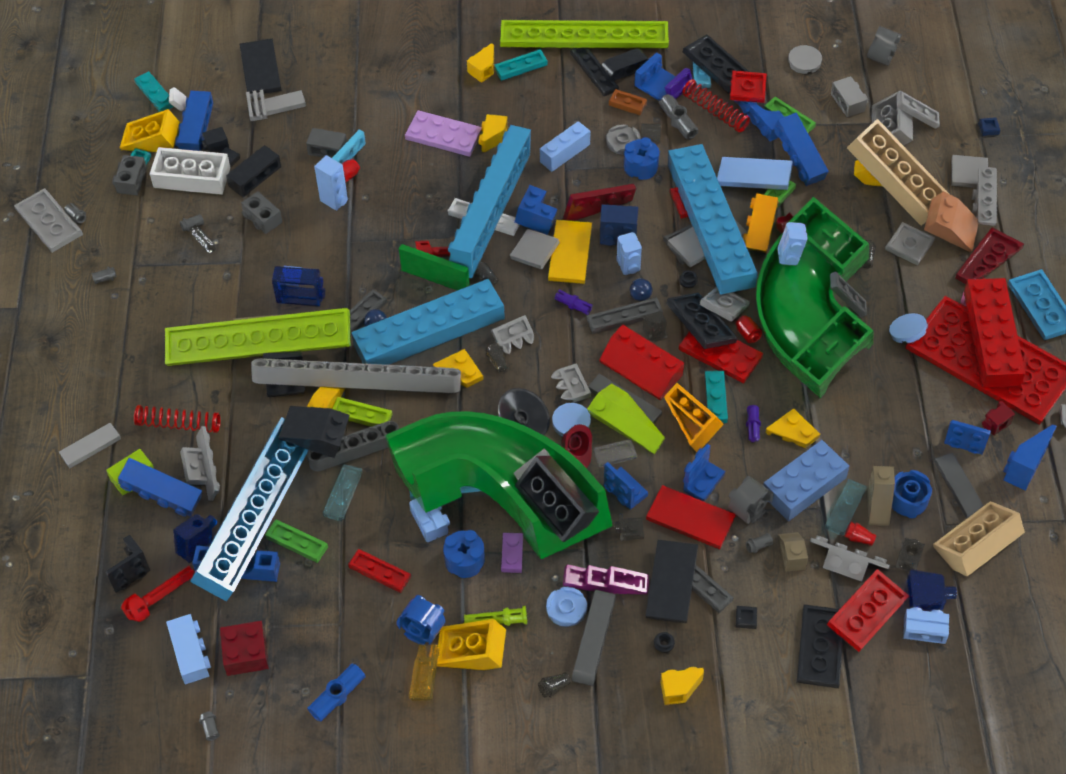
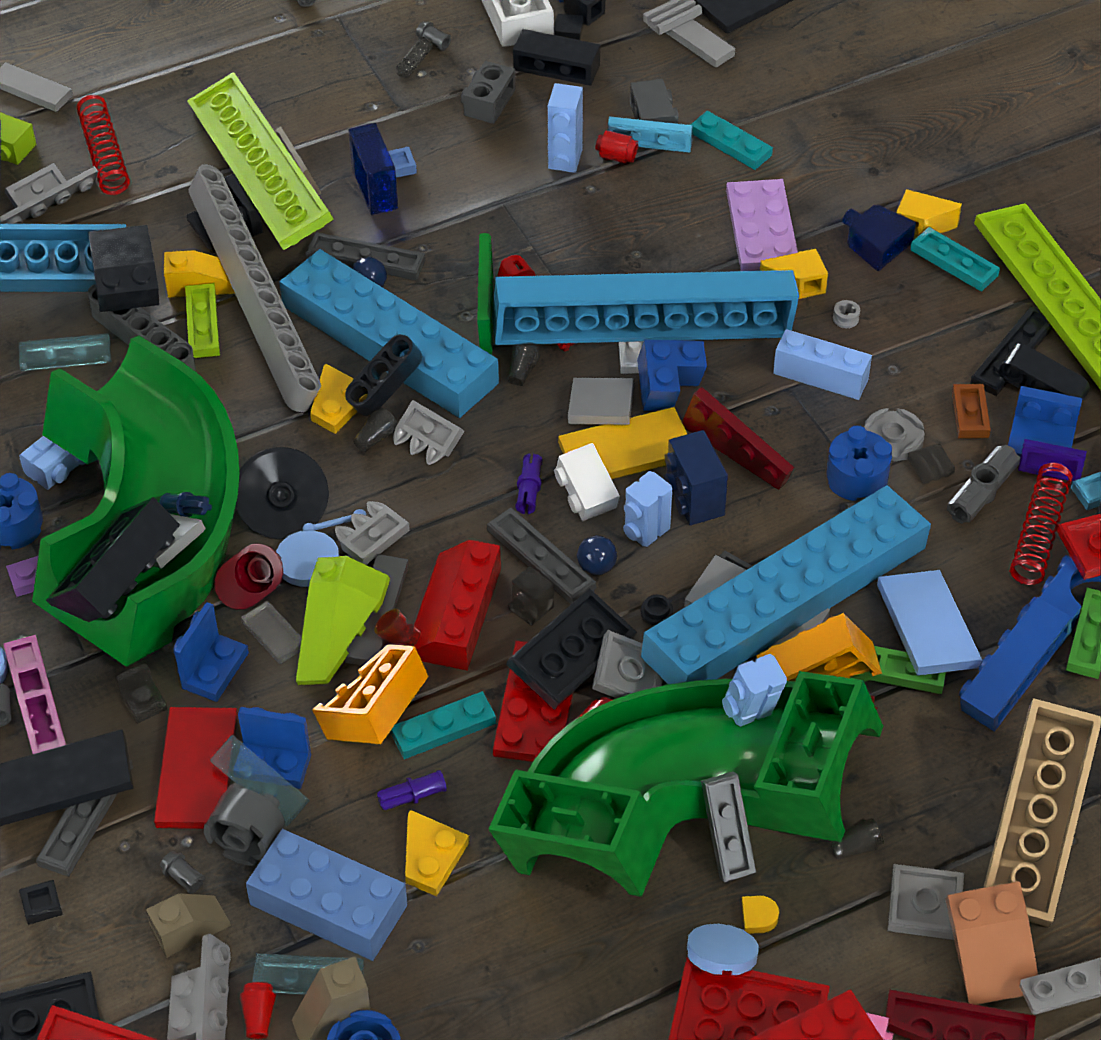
camera: 65 degrees right, 5 degrees down
(370, 120) = (731, 140): none -> teal plate
(473, 324) = (385, 360): none -> black beam
(485, 87) = (878, 234): none -> clear blue torso
(522, 455) = (185, 504): none -> dark blue axle
(530, 120) = (849, 320): none -> light grey bush
(552, 387) = (309, 526): none -> light blue hinge
(593, 273) = (586, 482): none -> white brick
(647, 390) = (395, 629): none -> clear red wheel
(716, 487) = (254, 774): none -> clear light blue tile
(890, 308) = (759, 914): none -> yellow tile

